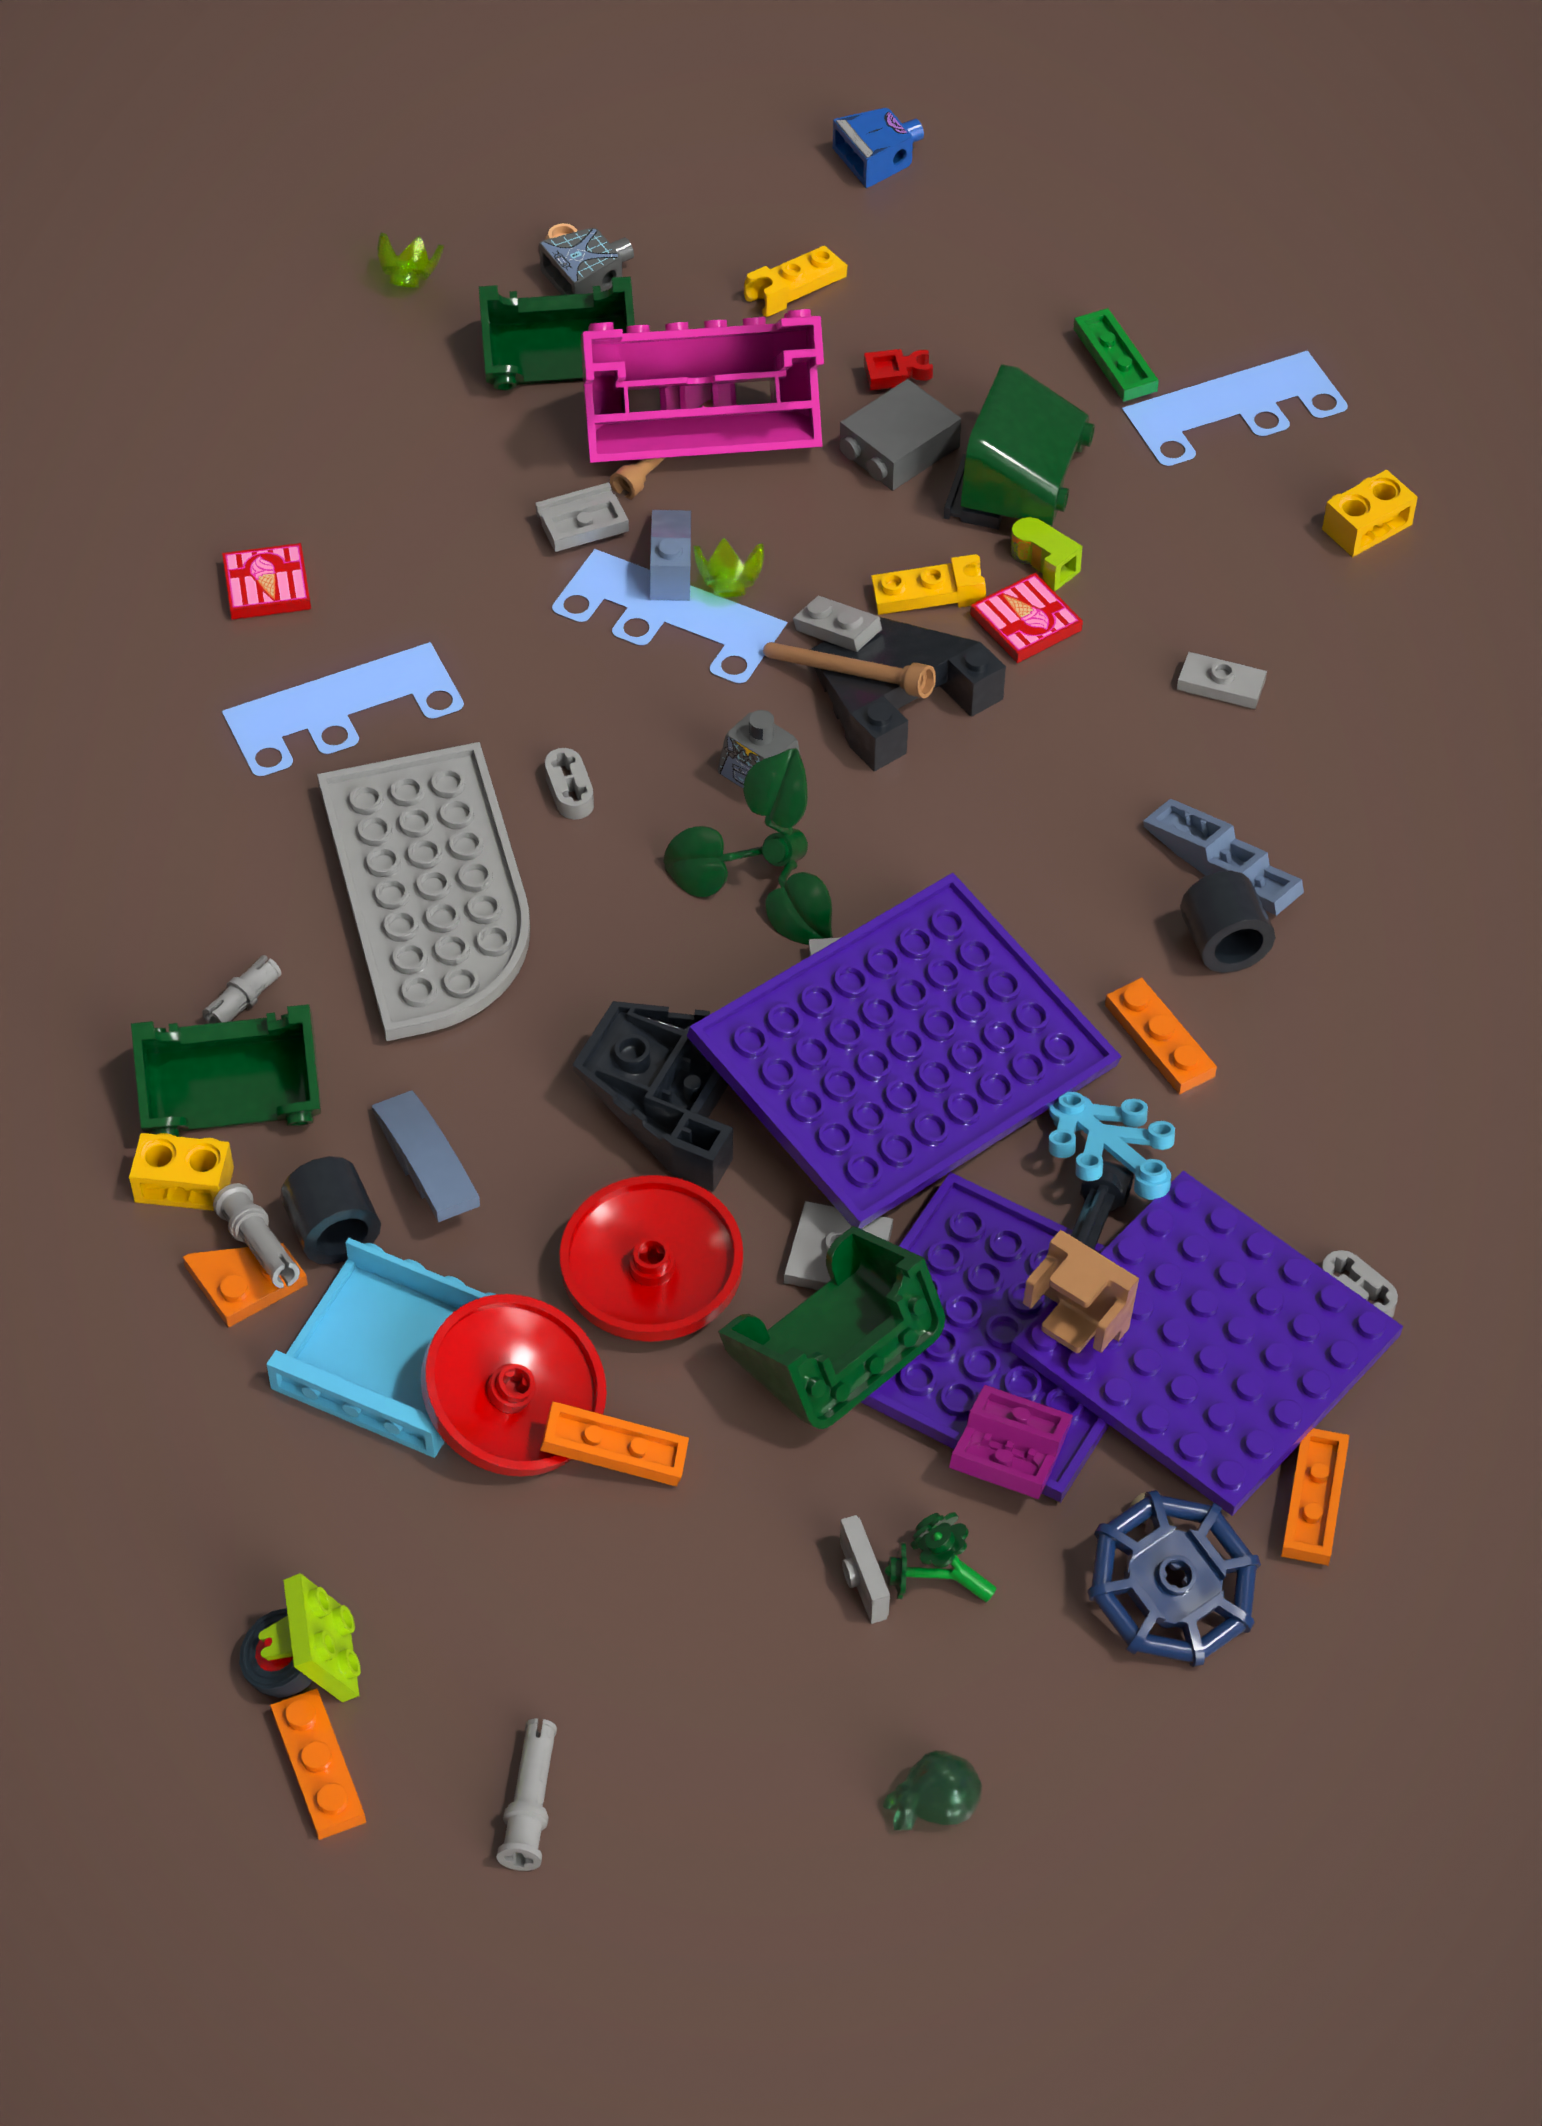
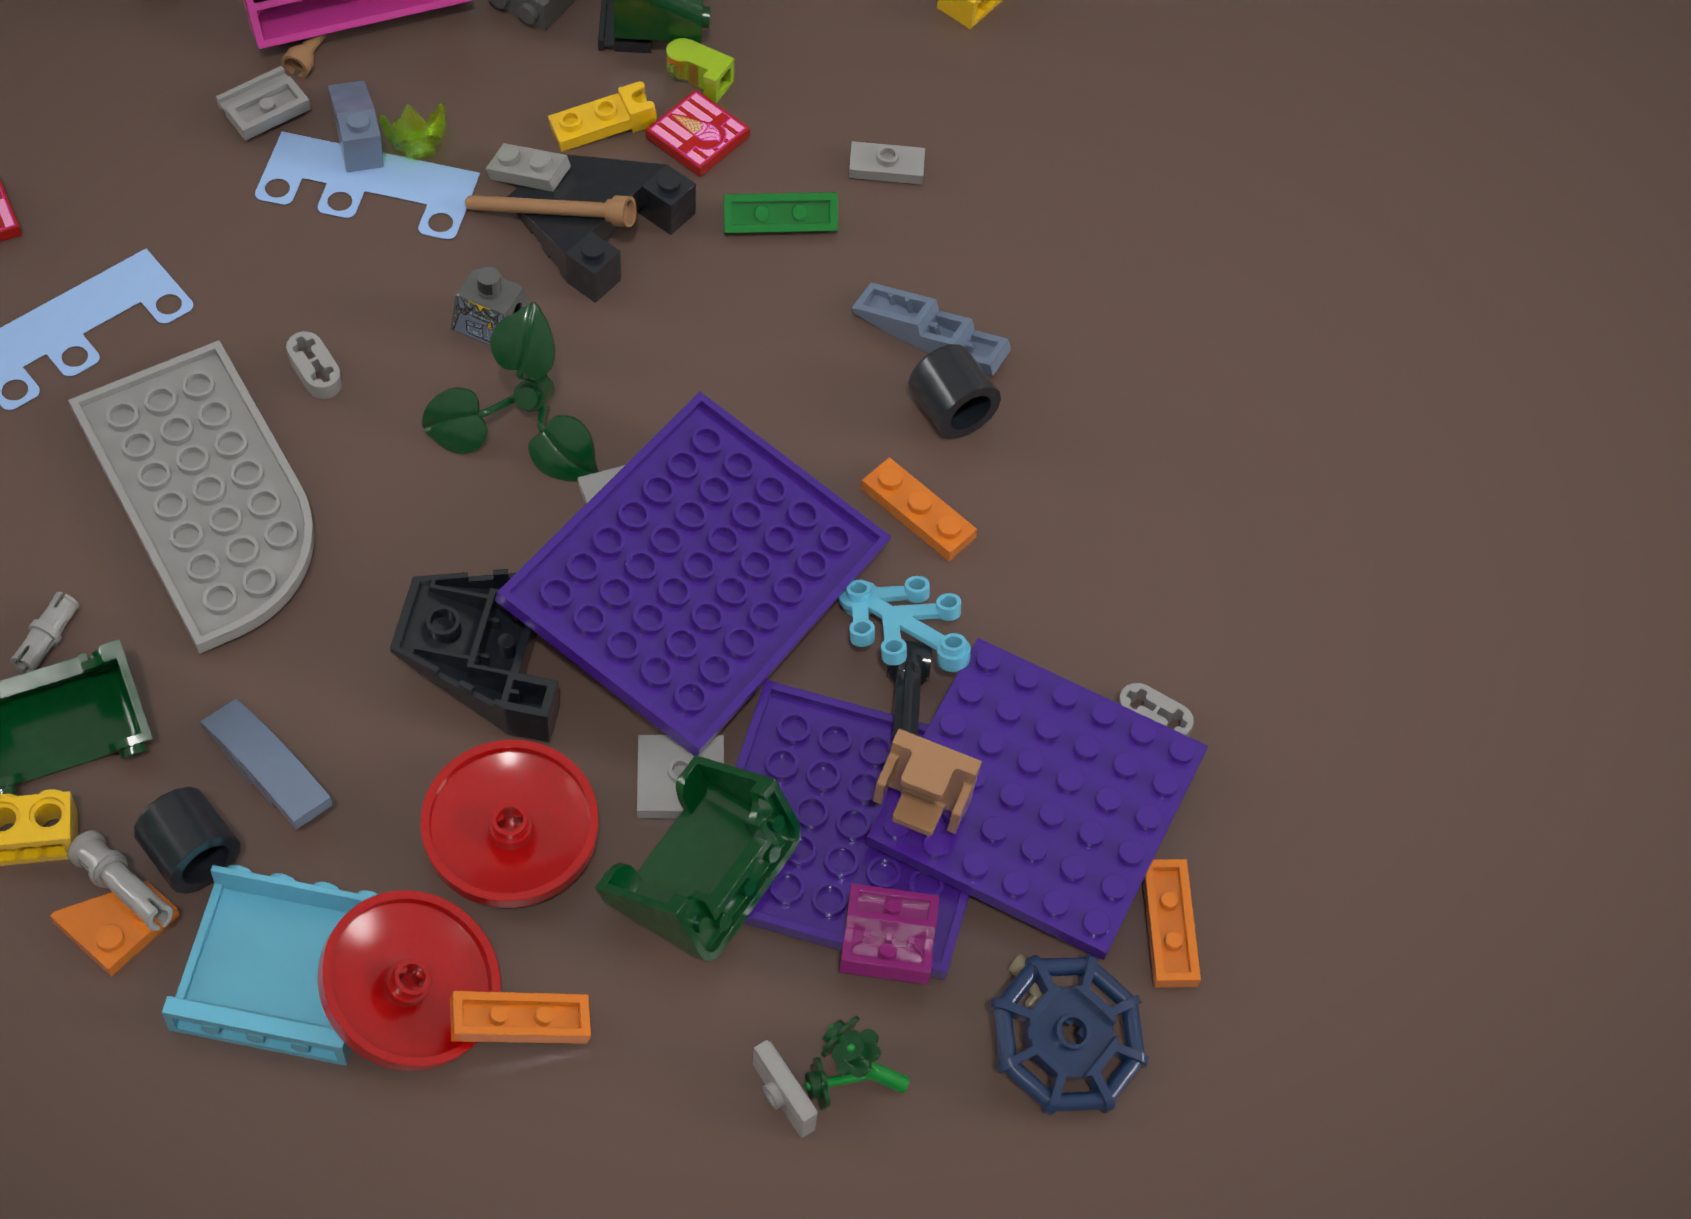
camera: 20 degrees left, 5 degrees up
(1091, 711) = (780, 212): none -> green plate

